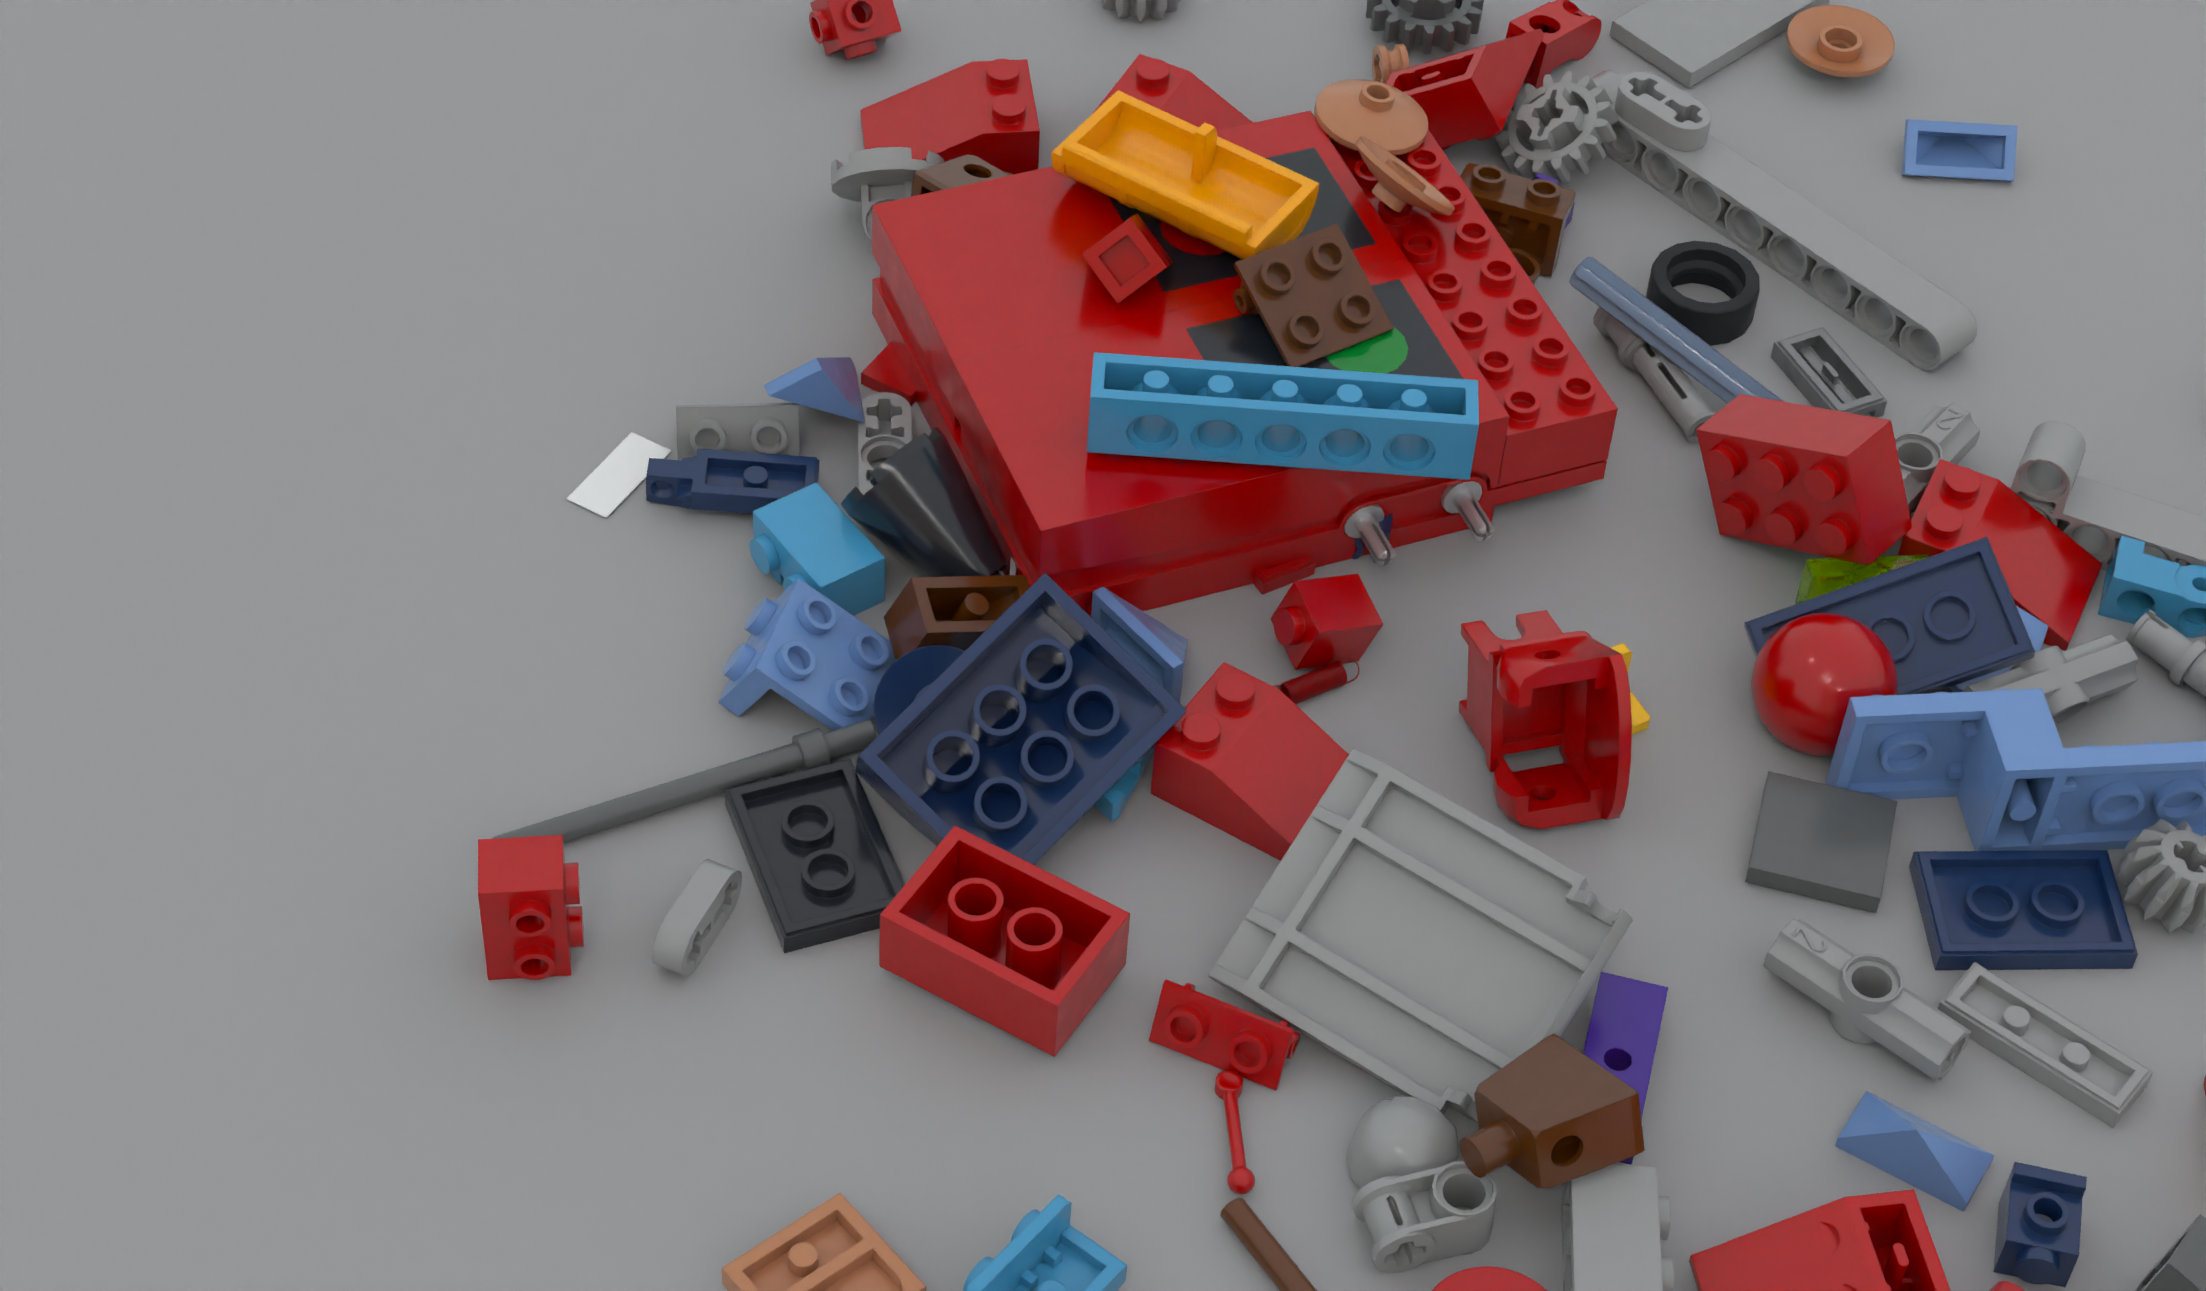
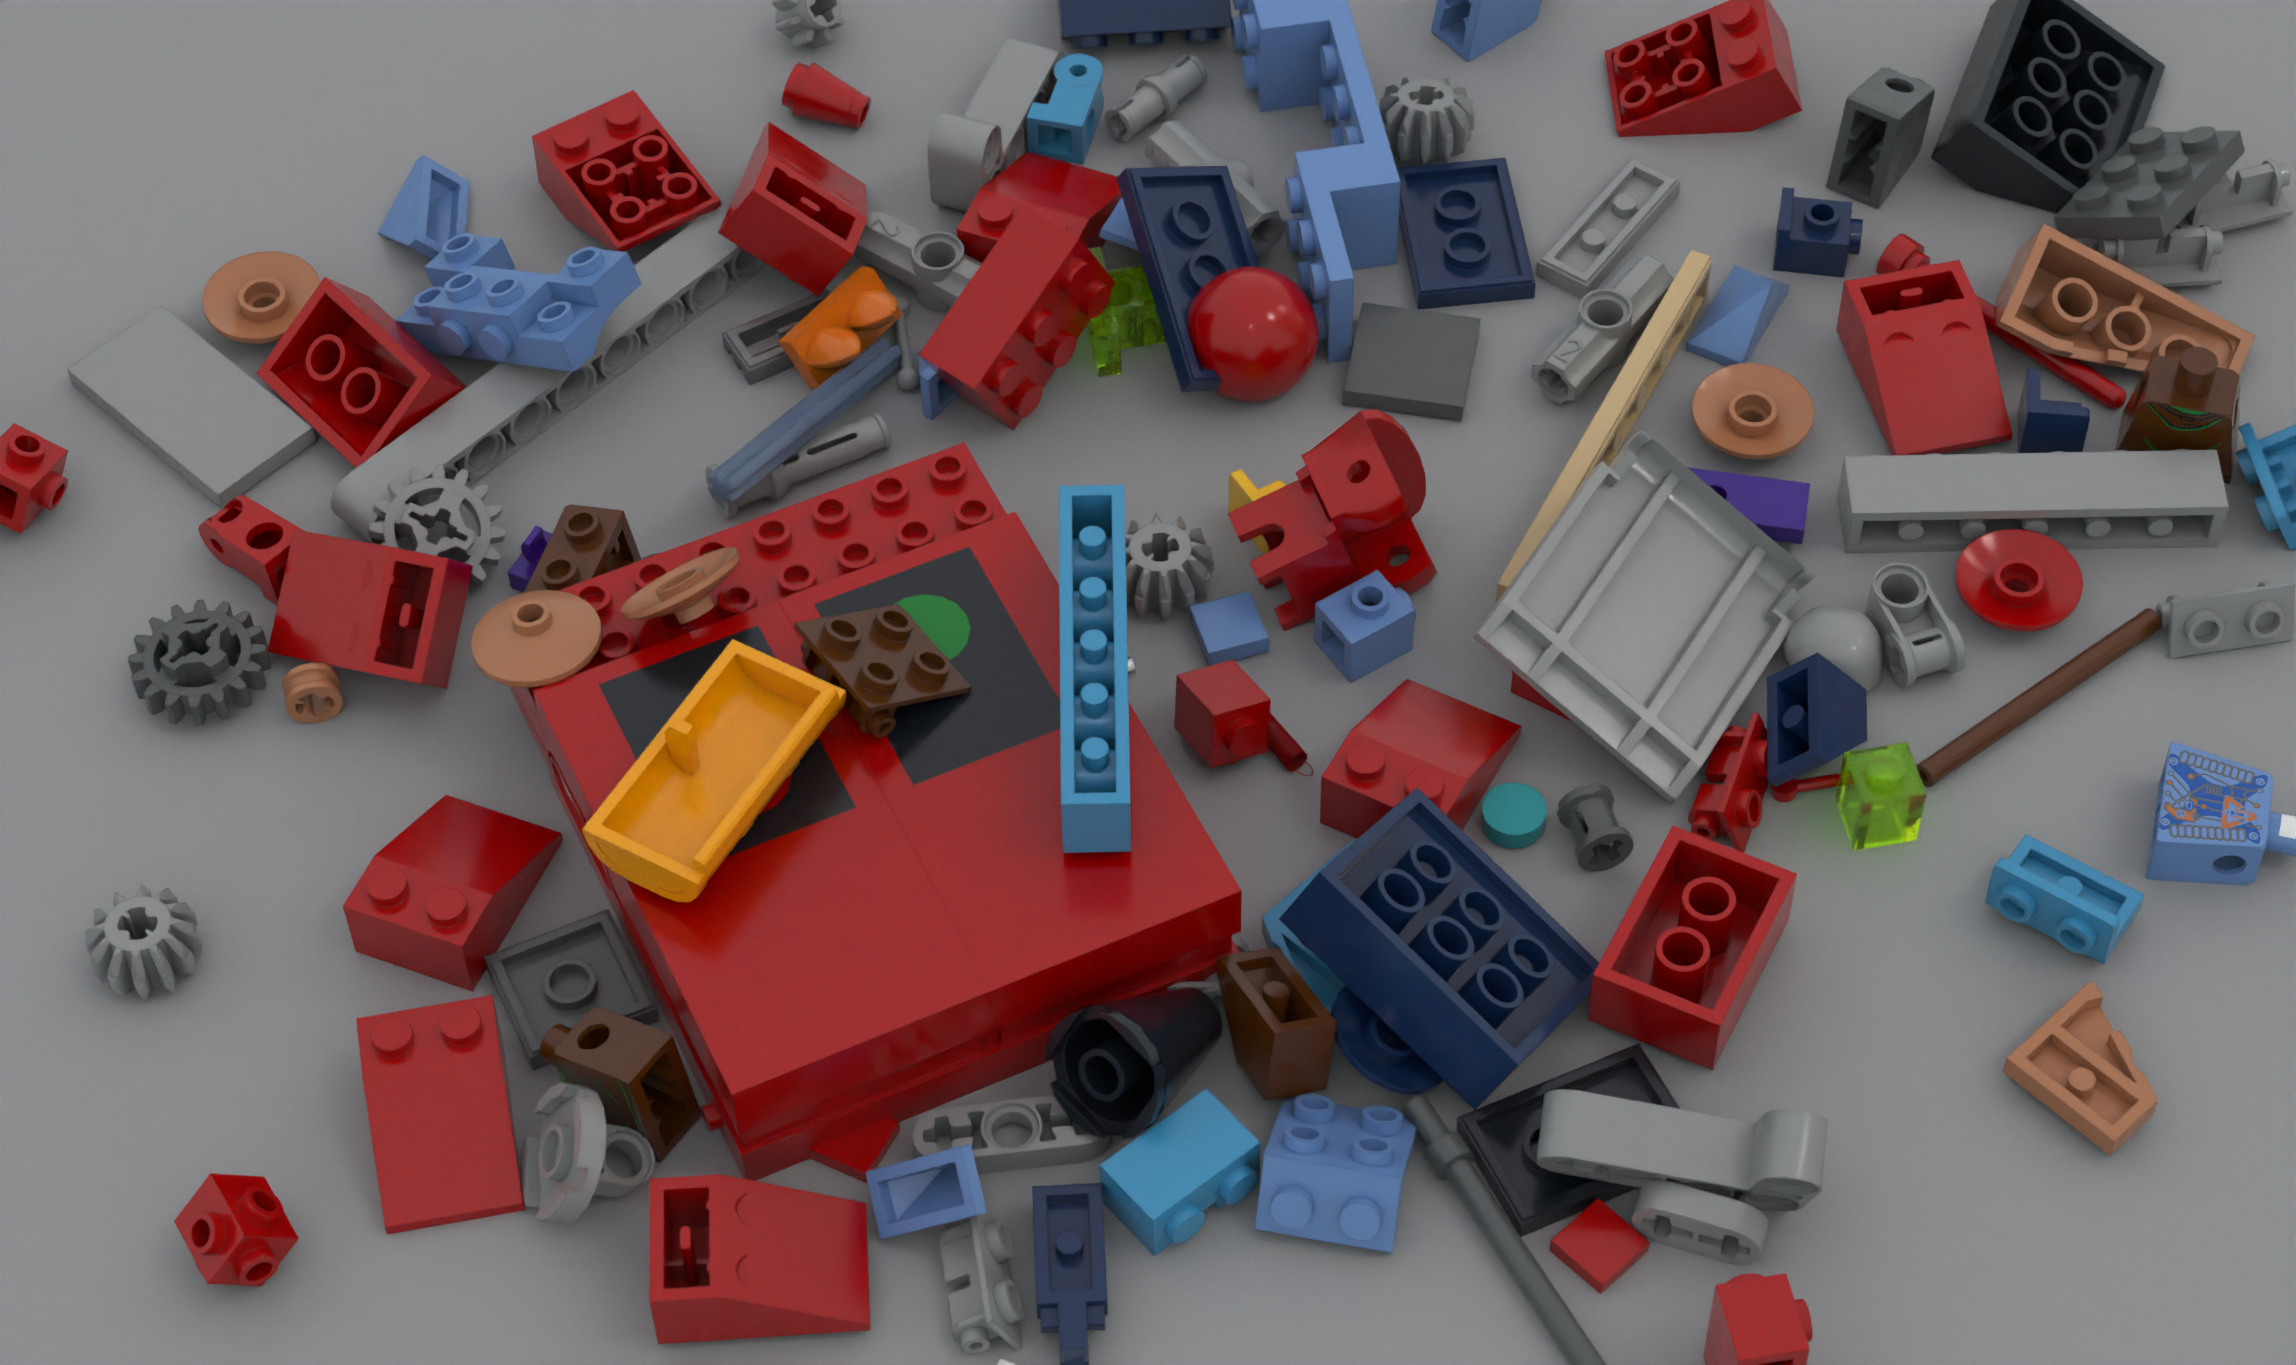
camera: 90 degrees left, 5 degrees up
(694, 842) = (1599, 1245): none -> red tile
(749, 940) = (1634, 1142): none -> light grey beam
(773, 283) = (754, 1260): none -> red slope
(1127, 258) = (834, 824): red panel -> none
(1143, 638) = (1275, 864): medium blue slope -> none
(1176, 901) = (1594, 827): none -> dark grey bush
(1189, 1140) = (1880, 796): none -> clear neon green brick
(1205, 850) = (1513, 815): none -> teal tile
(1279, 1087) = (1811, 717): none -> dark blue slope
(1442, 659) = (1229, 628): none -> medium blue tile
(1442, 746) = (1364, 625): none -> medium blue brick
(1520, 588) = (1166, 566): none -> light grey gear
(1553, 1117) = (1827, 515): reddish brown torso -> none
(1663, 111) = (429, 427): light grey beam -> none
(1708, 265) = (671, 391): black tyre -> none
(1753, 1098) = (1752, 411): none -> nougat dish
(1765, 89) = (355, 372): none -> red slope
(1791, 1019) = (1624, 400): none -> tan tile
(1806, 157) = (516, 316): none -> medium blue bracket
(1814, 382) = (841, 326): none -> orange tile
(1976, 351) = (796, 211): none -> red slope
(2010, 252) = (620, 174): none -> red slope
(2151, 407) = (824, 97): none -> red cone

